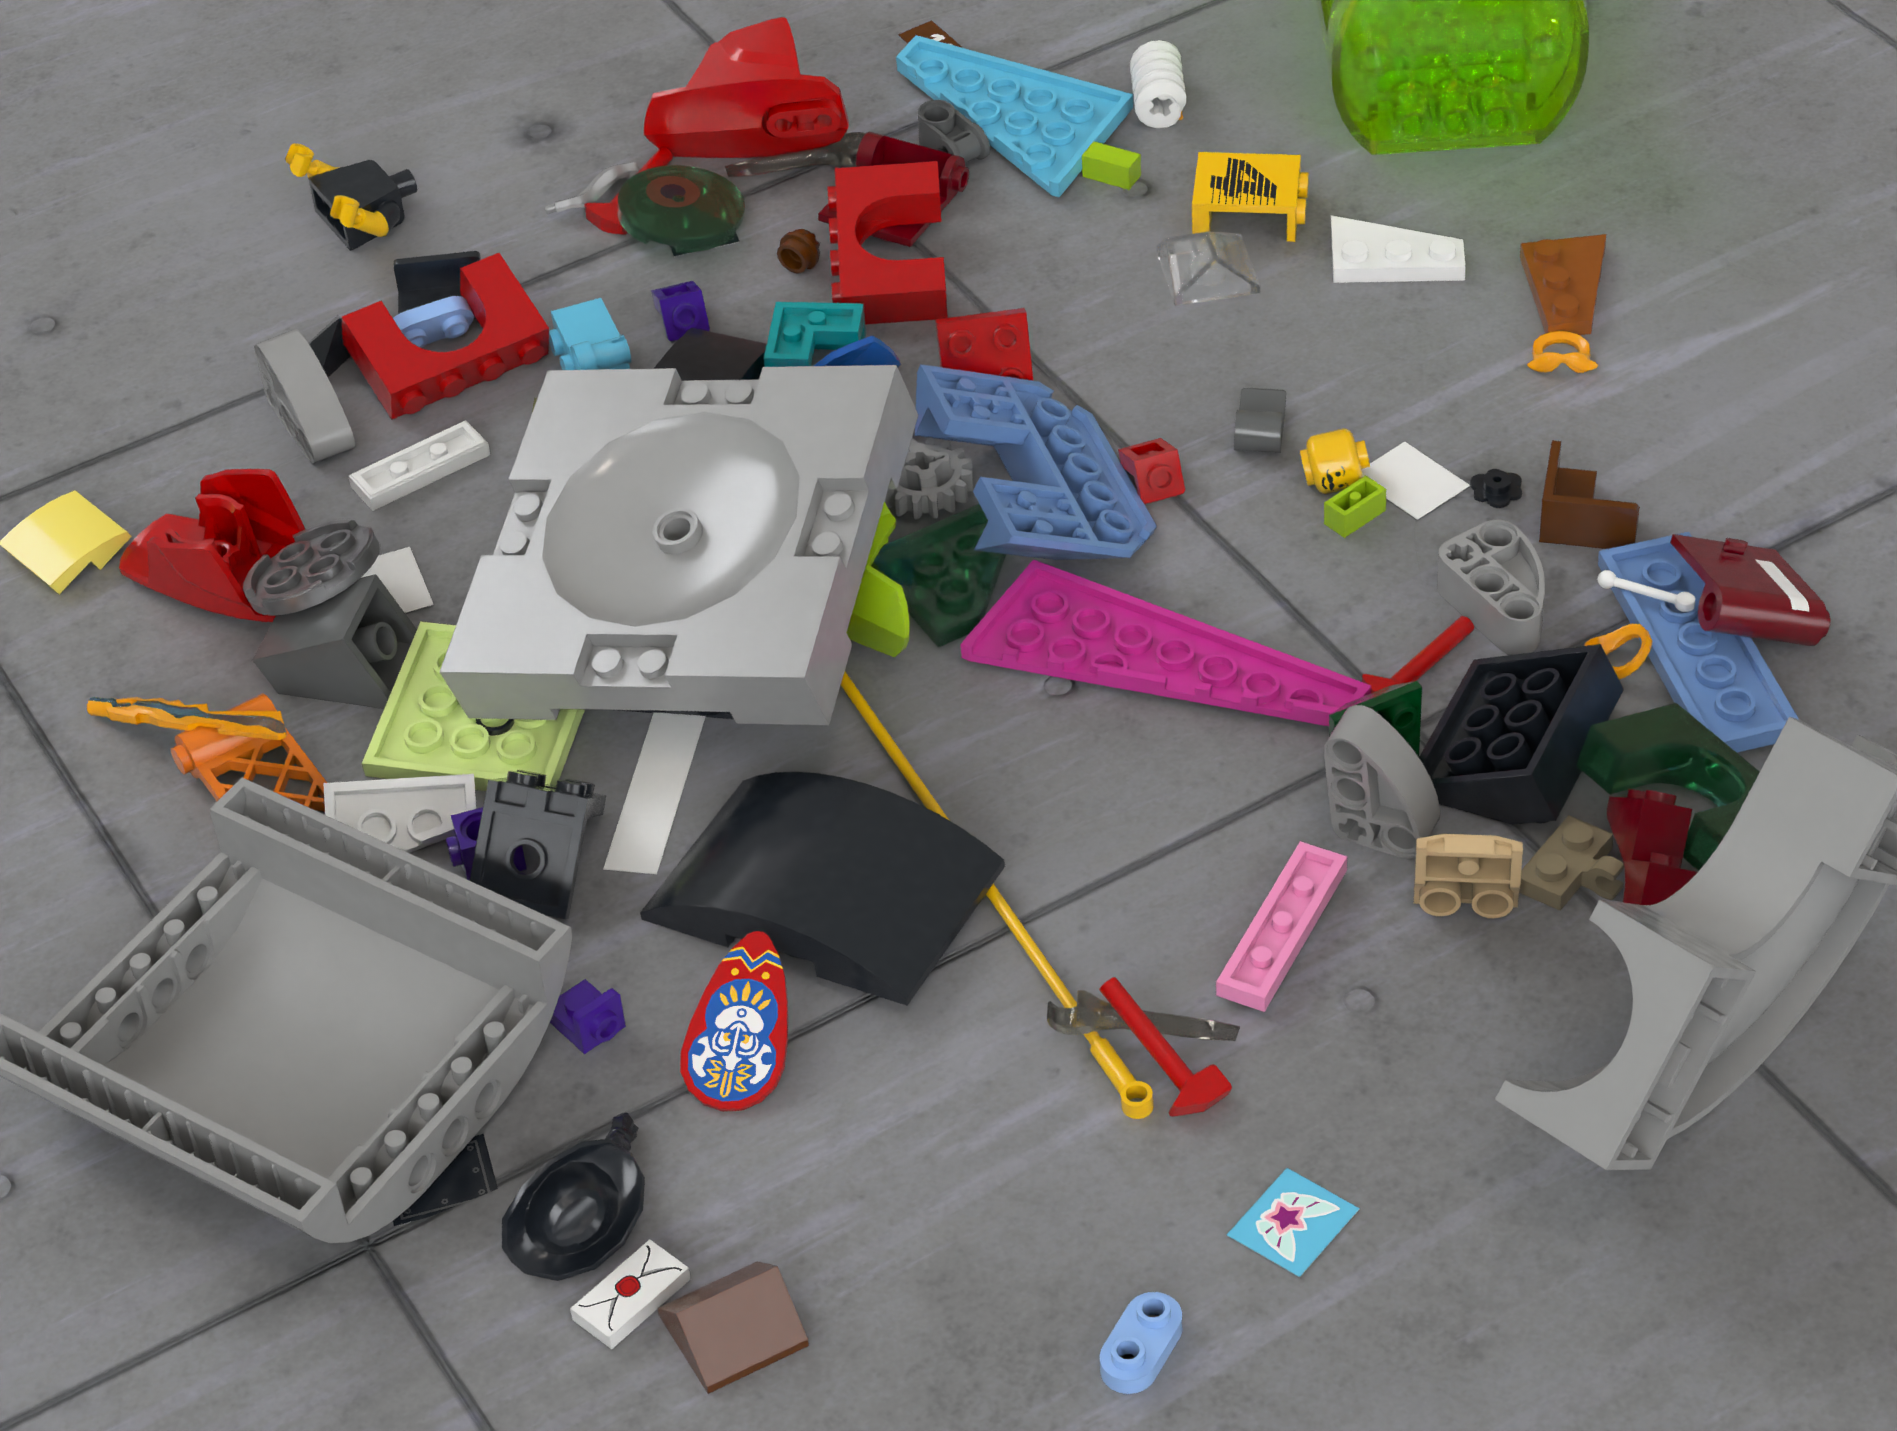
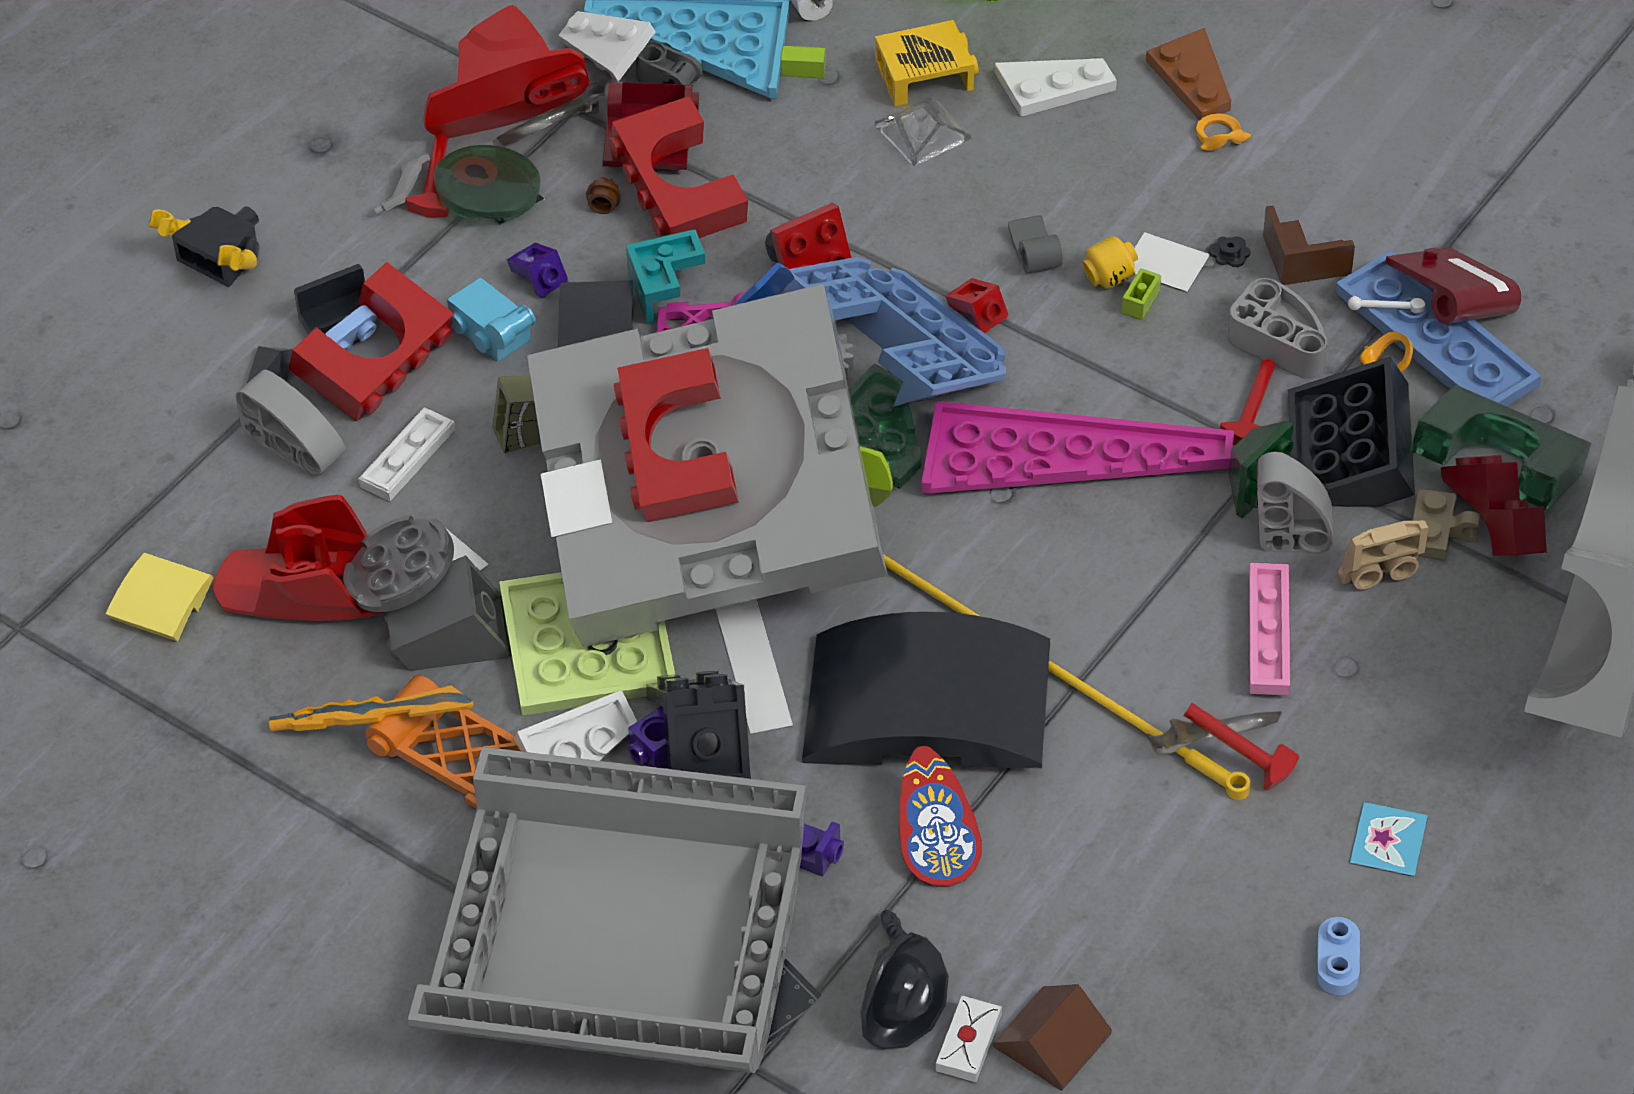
camera: 25 degrees left, 5 degrees up
(515, 539) = (576, 498): none -> white sticker
(635, 443) = (648, 394): none -> red arch
(898, 90) = (607, 40): none -> white wing

